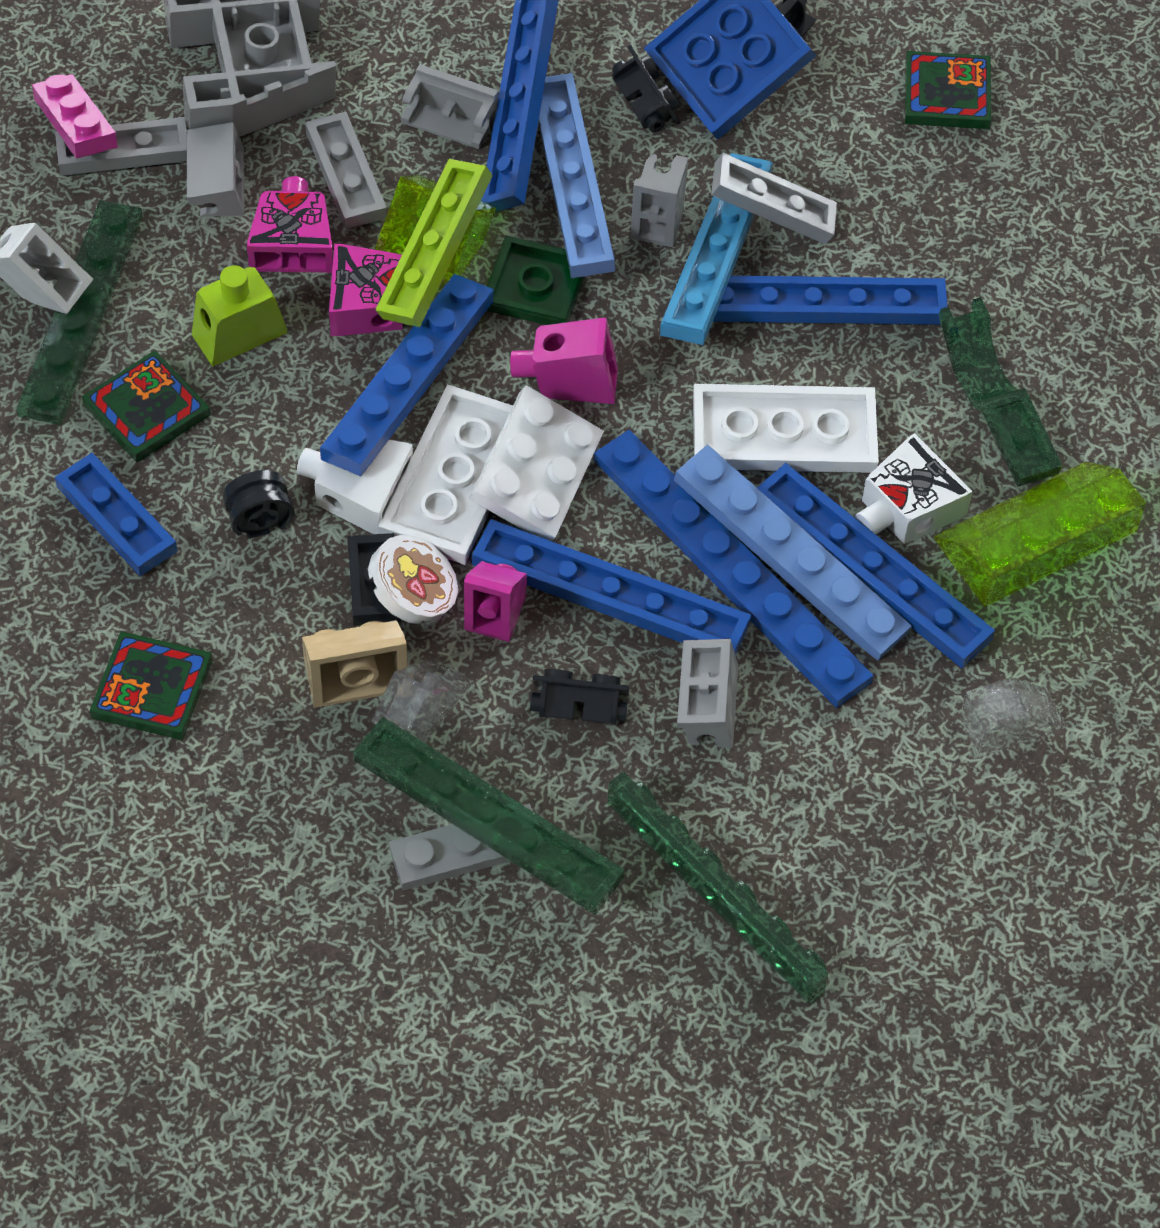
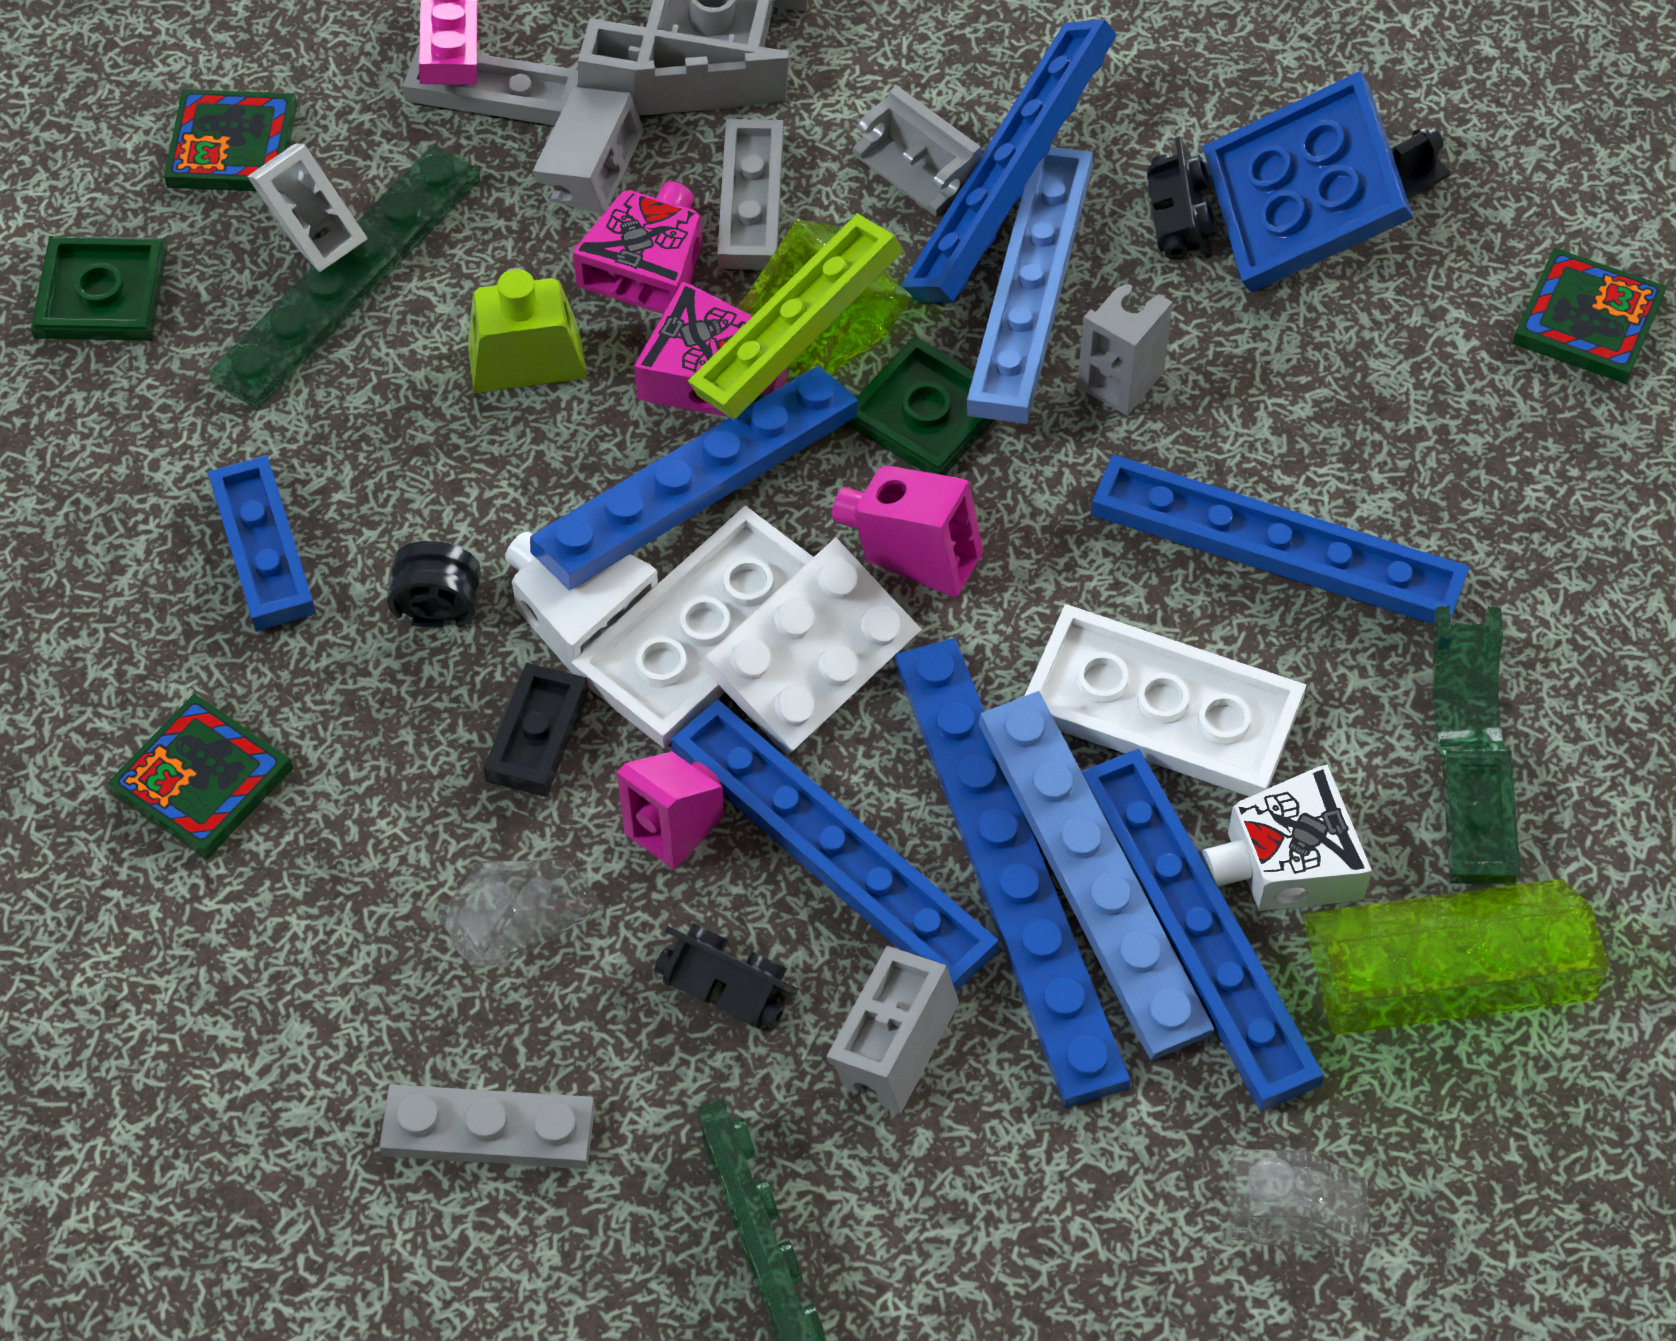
camera: 25 degrees right, 0 degrees up
(146, 406) = (367, 417): tile -> none
(353, 661) = (449, 828): tan slope -> none
(413, 579) = (576, 744): tile -> none
(489, 815) = (522, 1100): clear green plate -> none
(709, 267) = (1174, 435): dark azure tile -> none
(774, 198) = (1279, 390): light grey plate -> none

